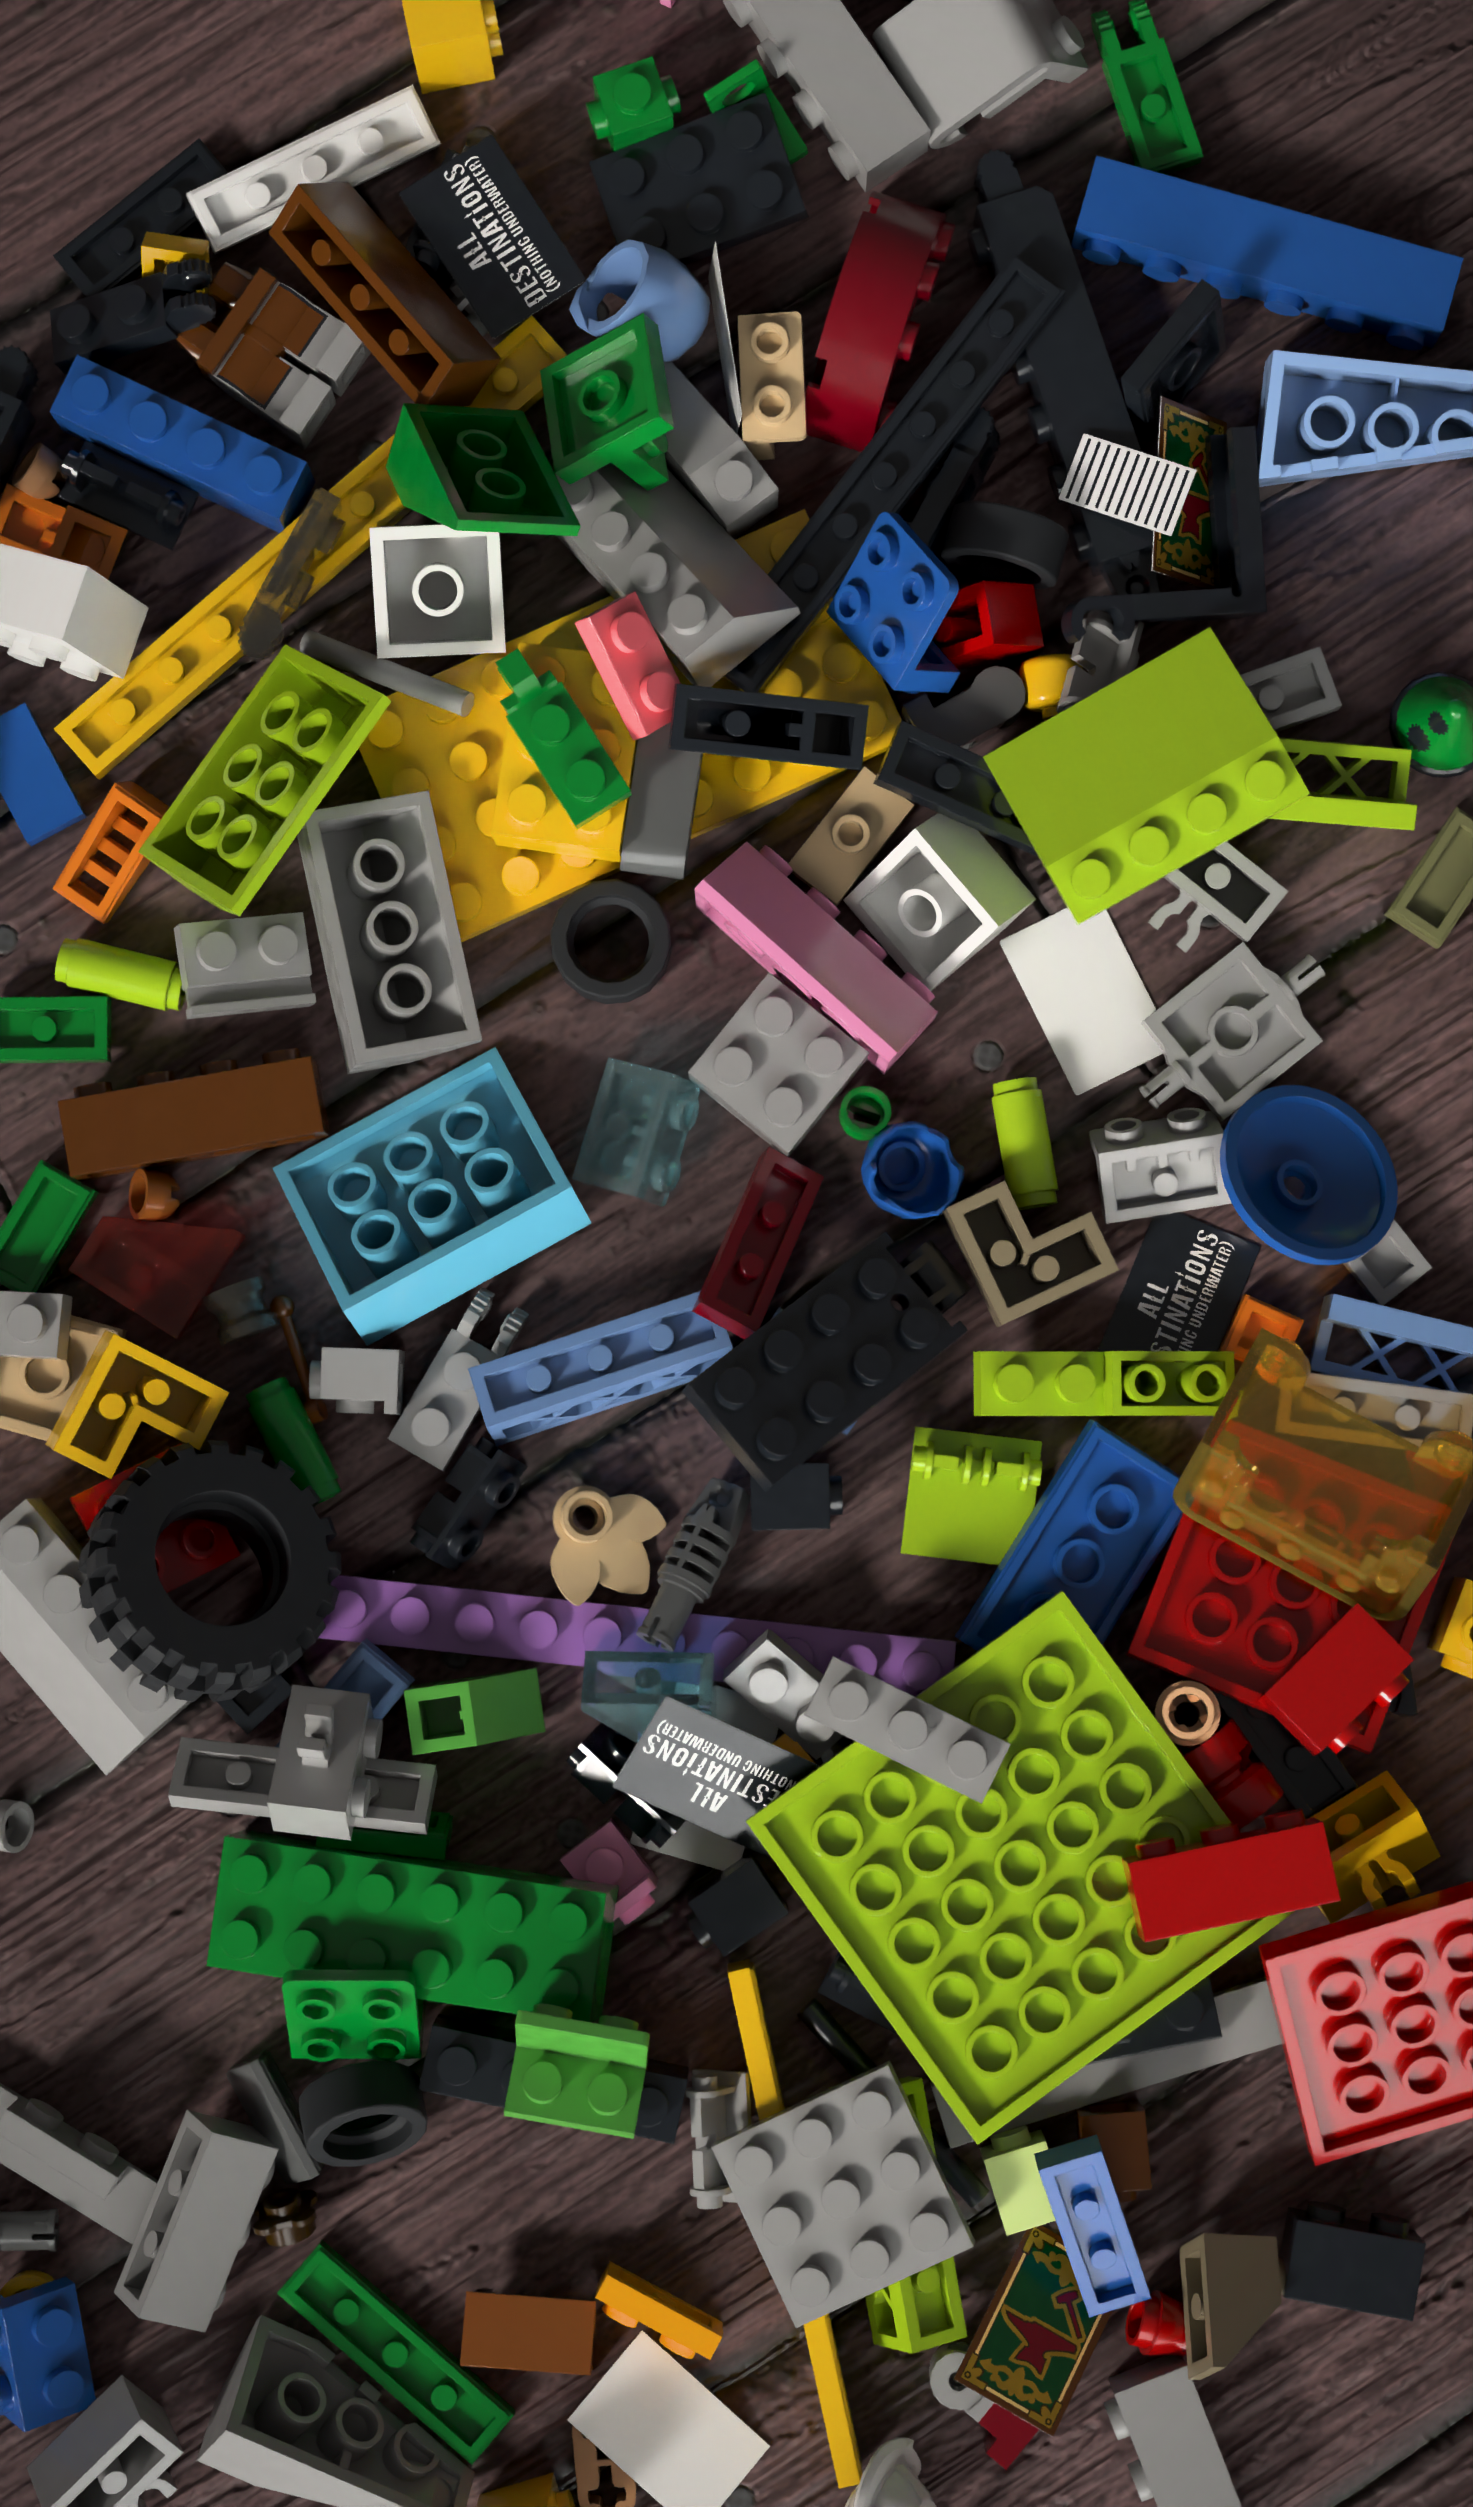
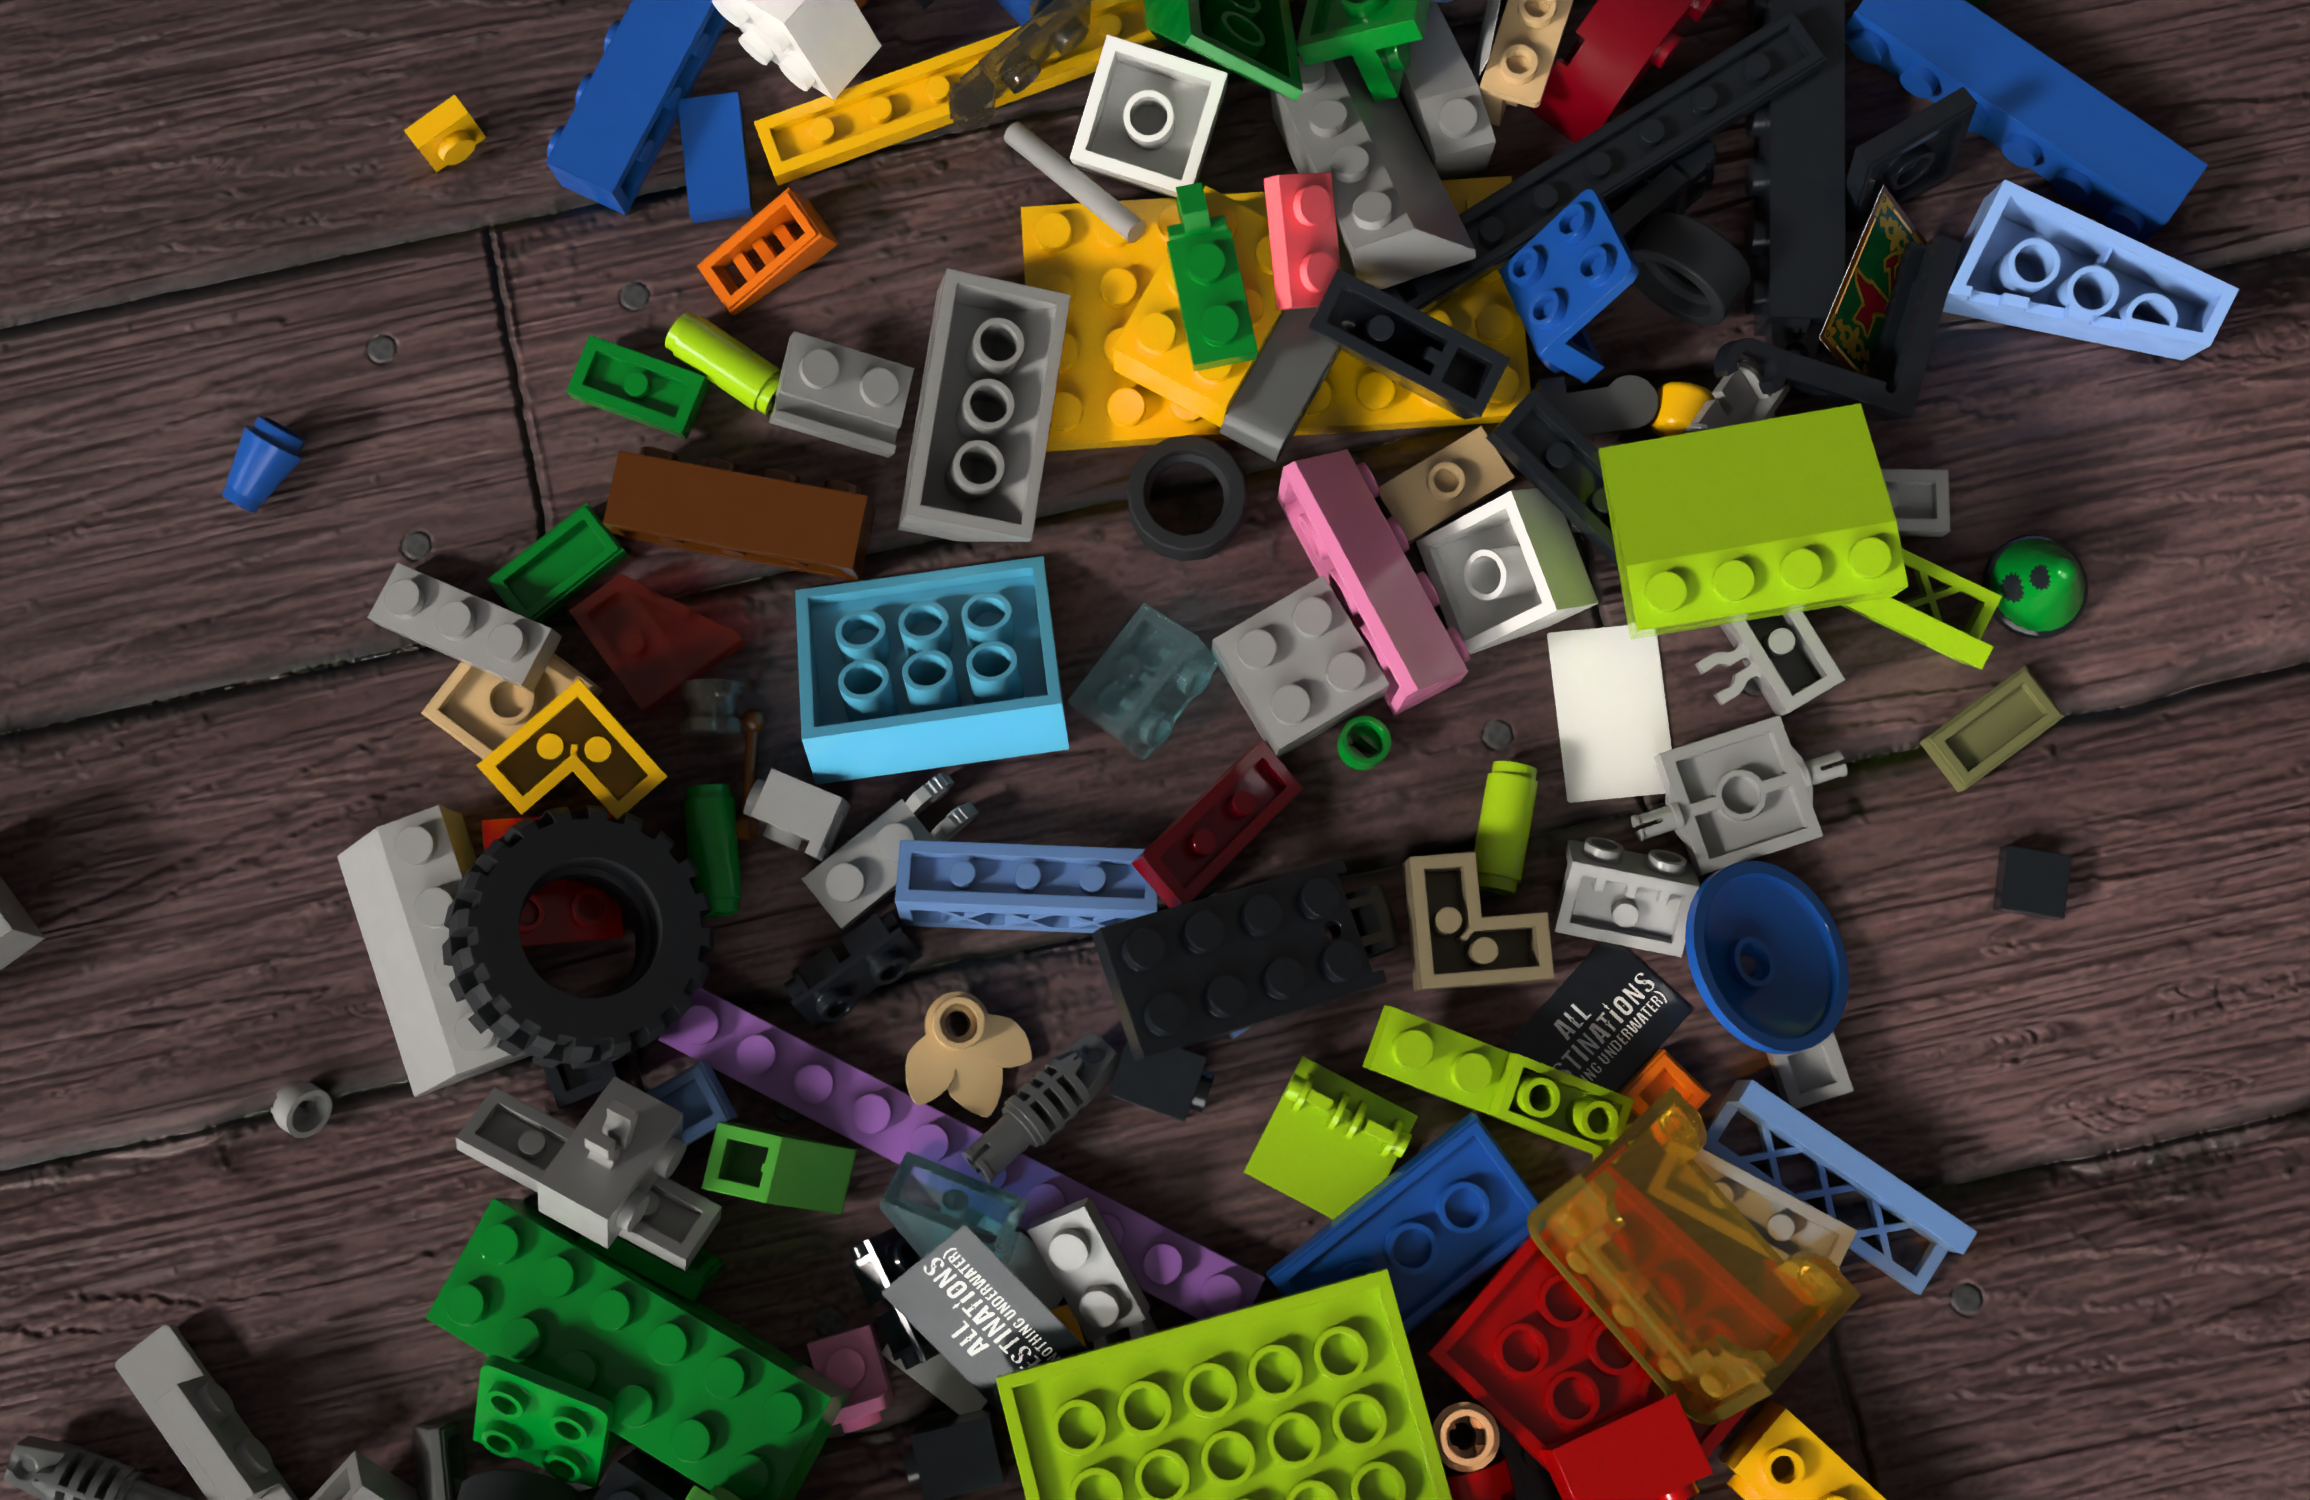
camera: 20 degrees right, 5 degrees down
(151, 1195) = (673, 573): dark orange hinge -> none
(263, 779) = (921, 225): lime slope -> none
(907, 1729) = (1186, 1349): light grey plate -> none
(911, 1170) = (1388, 812): blue hair -> none
(990, 624) = (1645, 335): red slope -> none
(1127, 484) = (1823, 253): white sticker -> none

